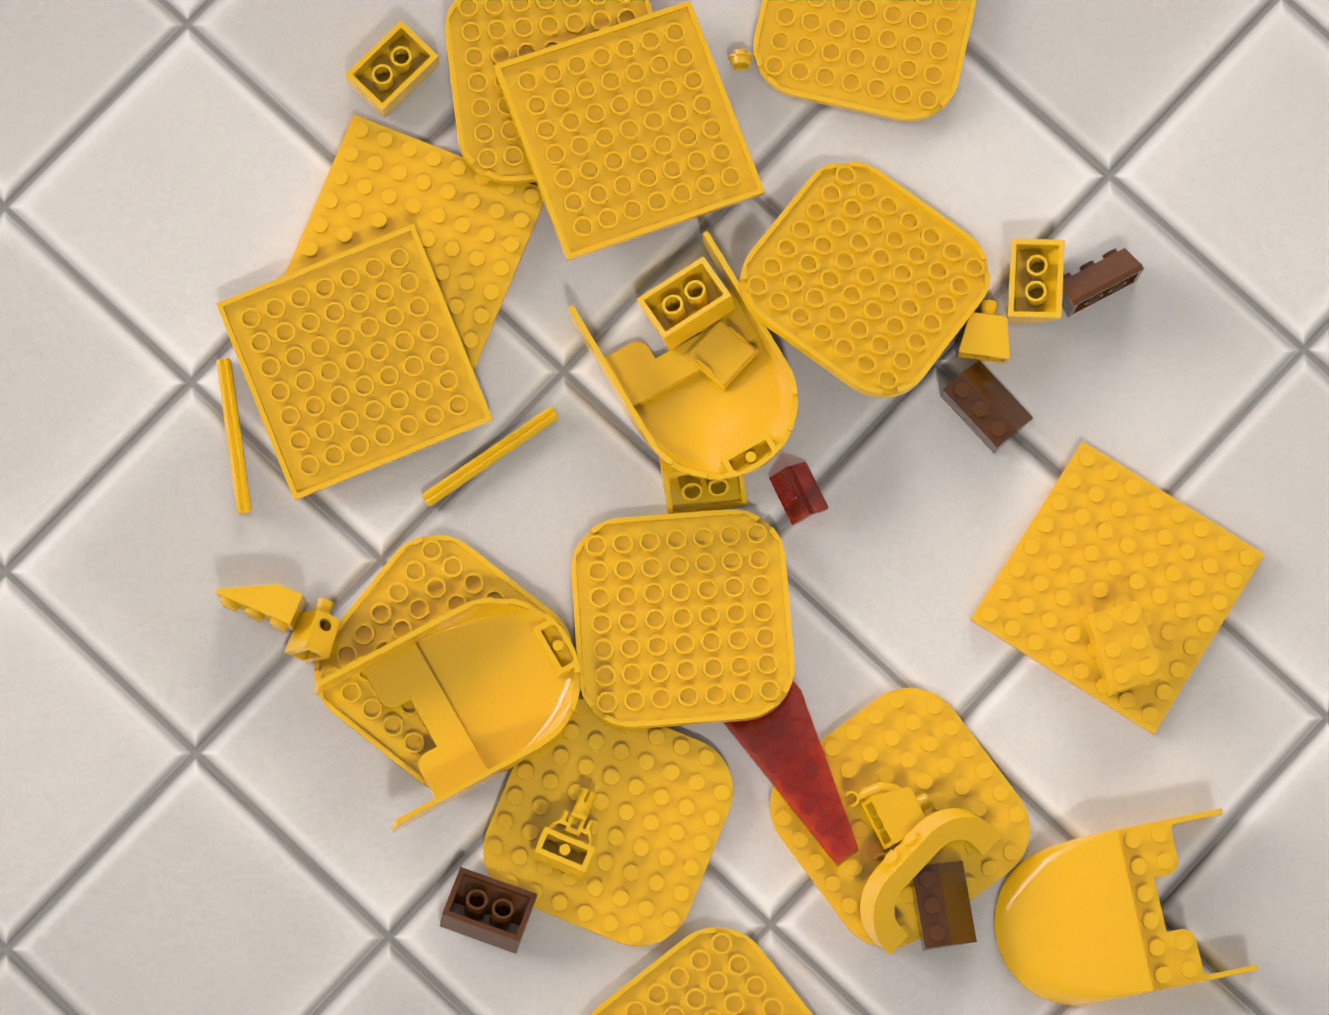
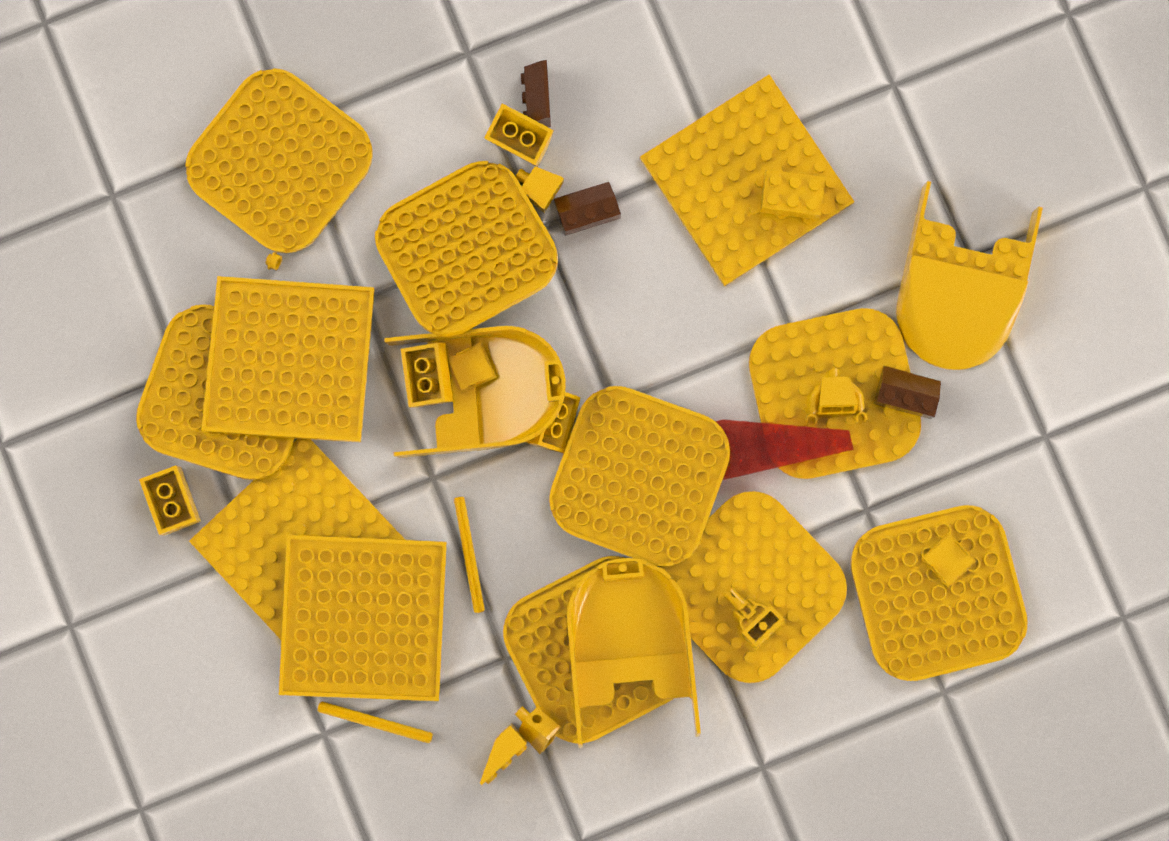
camera: 60 degrees left, 5 degrees up
(488, 910) = (776, 694): reddish brown slope -> none
(798, 492) = (588, 359): clear red panel -> none
(907, 861) = (872, 400): yellow arch -> none

